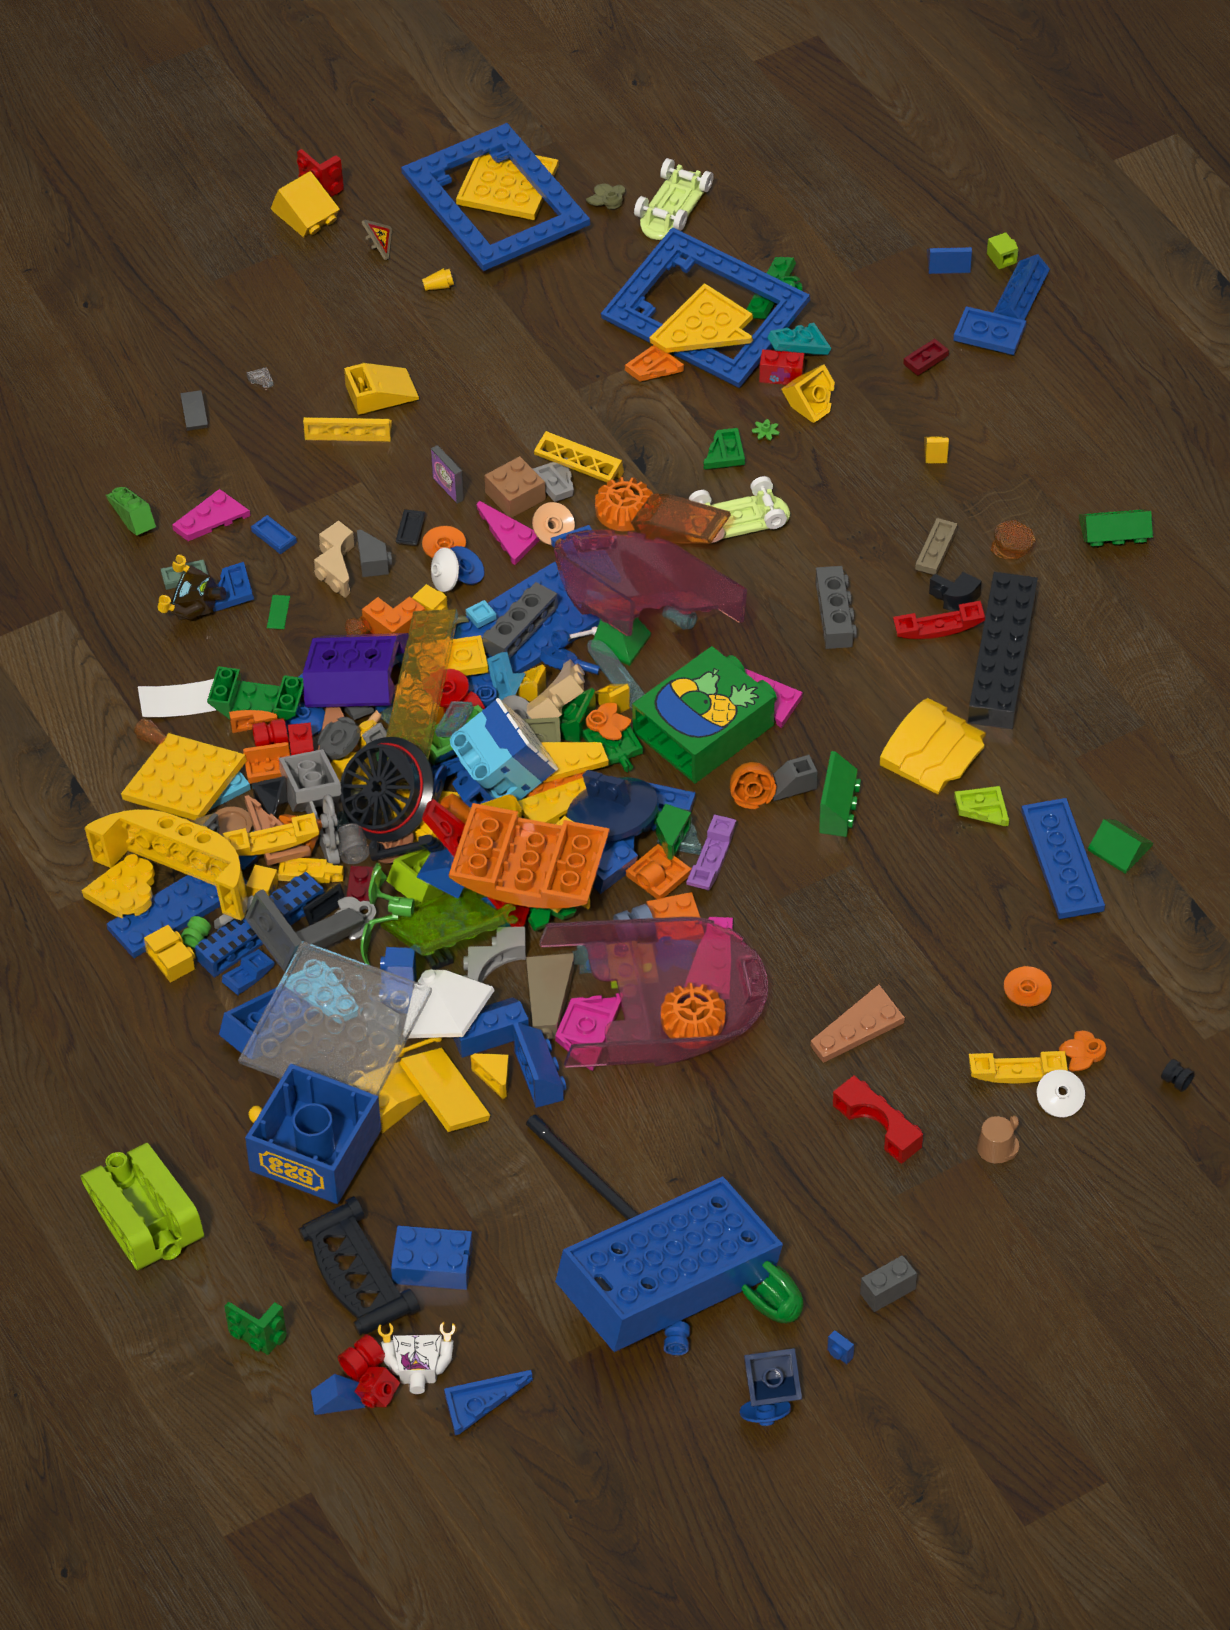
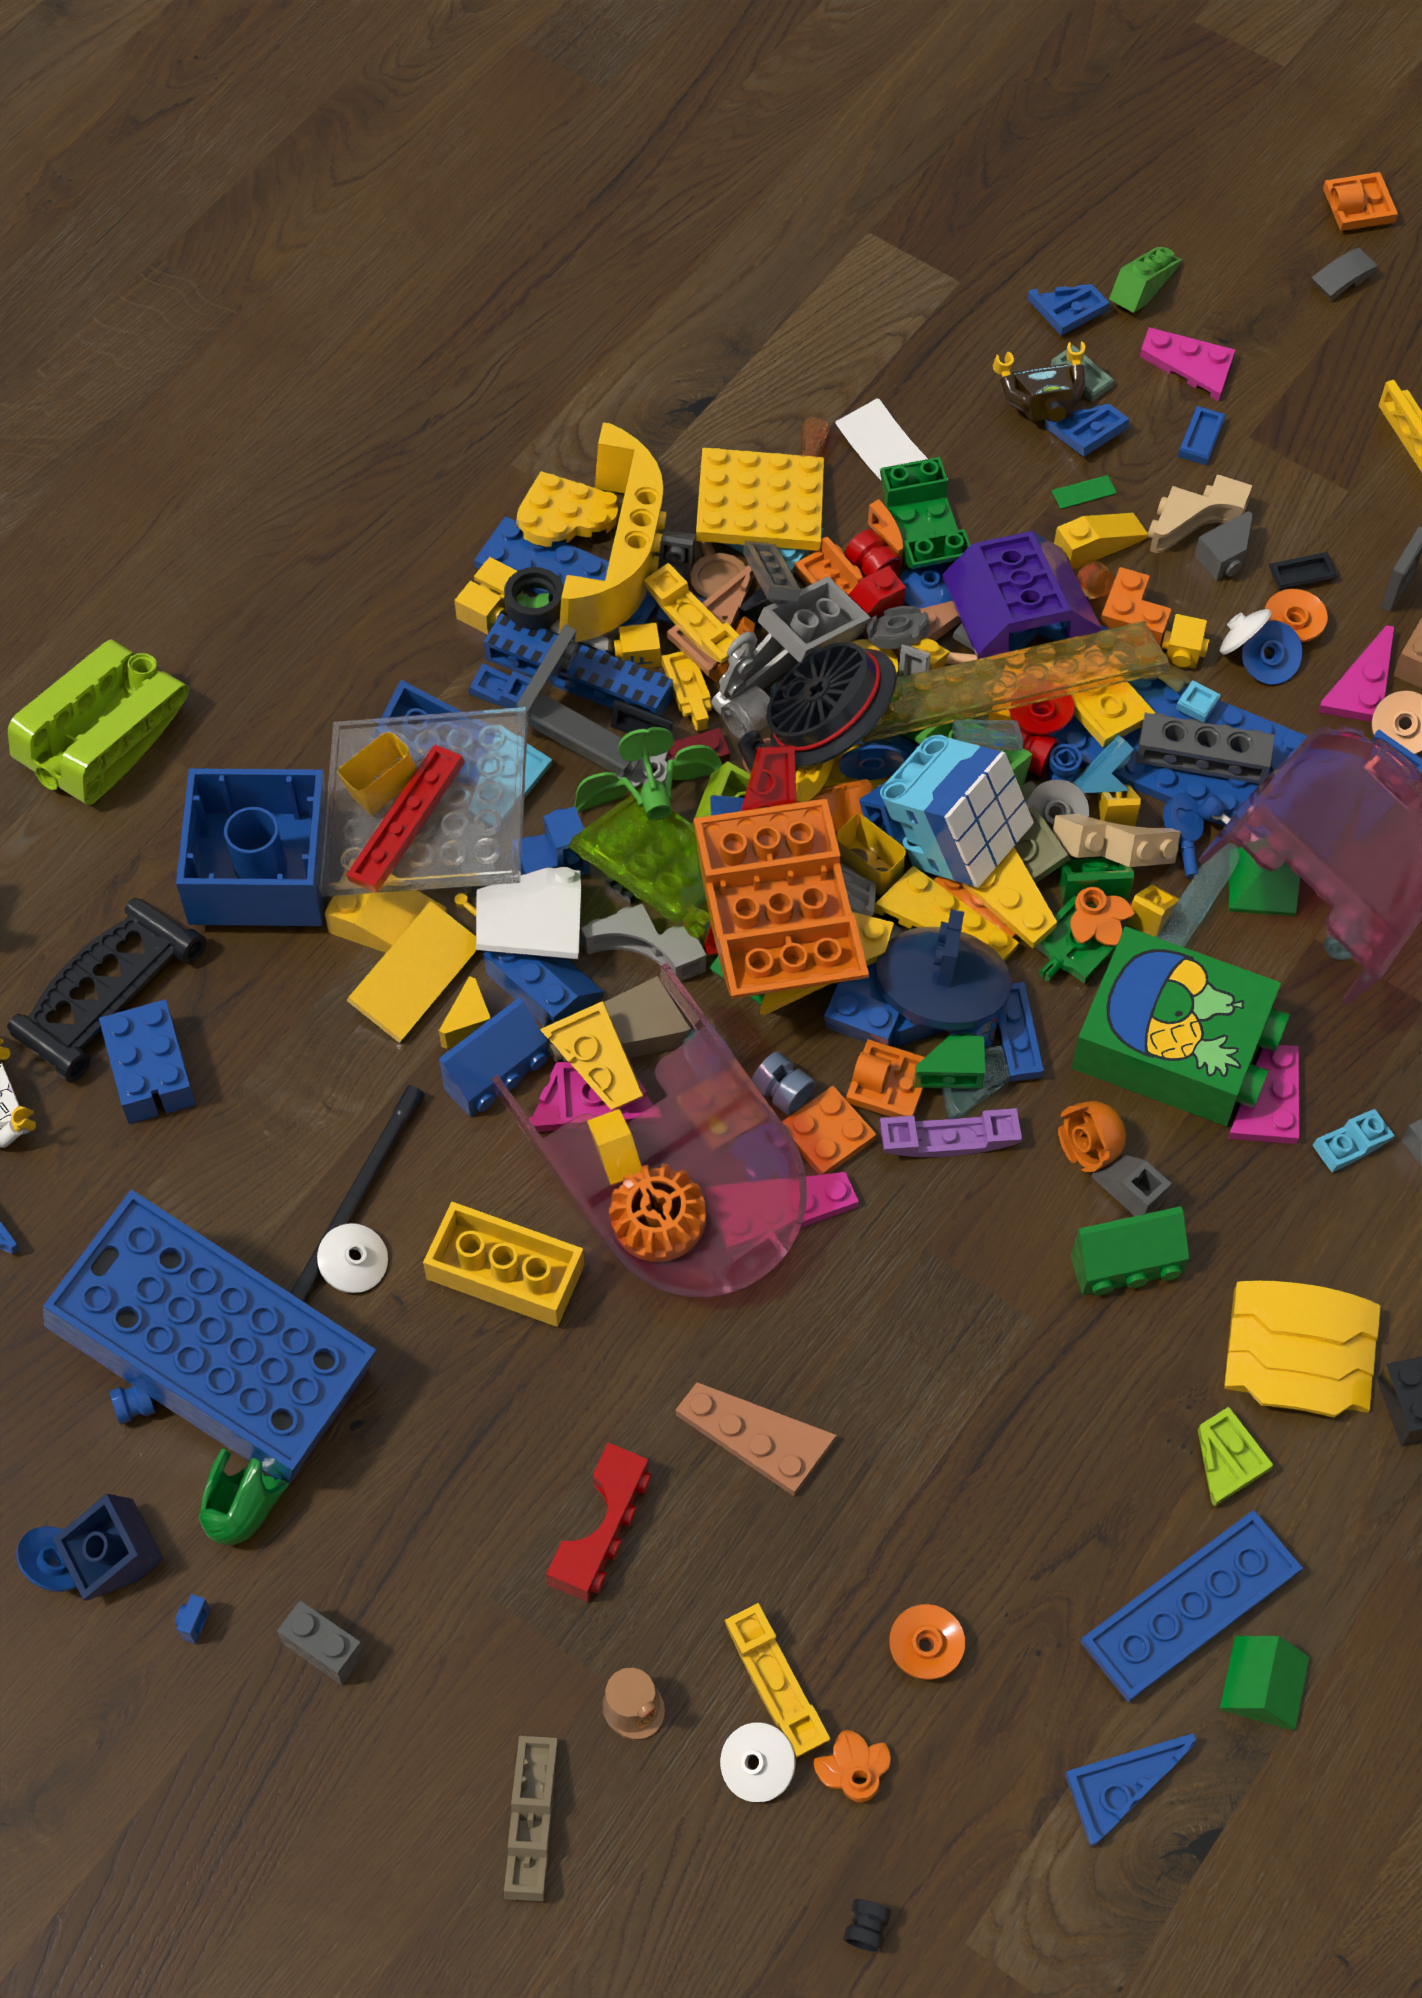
camera: 65 degrees right, 10 degrees up
(127, 558) = (1069, 306): none -> blue wing
(141, 377) = (1360, 201): none -> orange plate
(195, 906) = (533, 578): none -> black tyre
(263, 781) = (771, 572): none -> dark grey plate
(305, 1016) = (360, 772): none -> yellow piece
(323, 614) = (1098, 536): none -> yellow slope
(351, 1033) = (405, 818): none -> red plate
(569, 1004) = (597, 1053): none -> yellow wing
(635, 1190) = (350, 1274): none -> white dish
(637, 1017) = (615, 1146): none -> yellow slope
(685, 1106) = (504, 1264): none -> yellow brick
(816, 668) = (1353, 1141): none -> medium azure slope
(1039, 1214) = (530, 1818): none -> dark tan slope
(1149, 936) = (1114, 1786): none -> blue wing

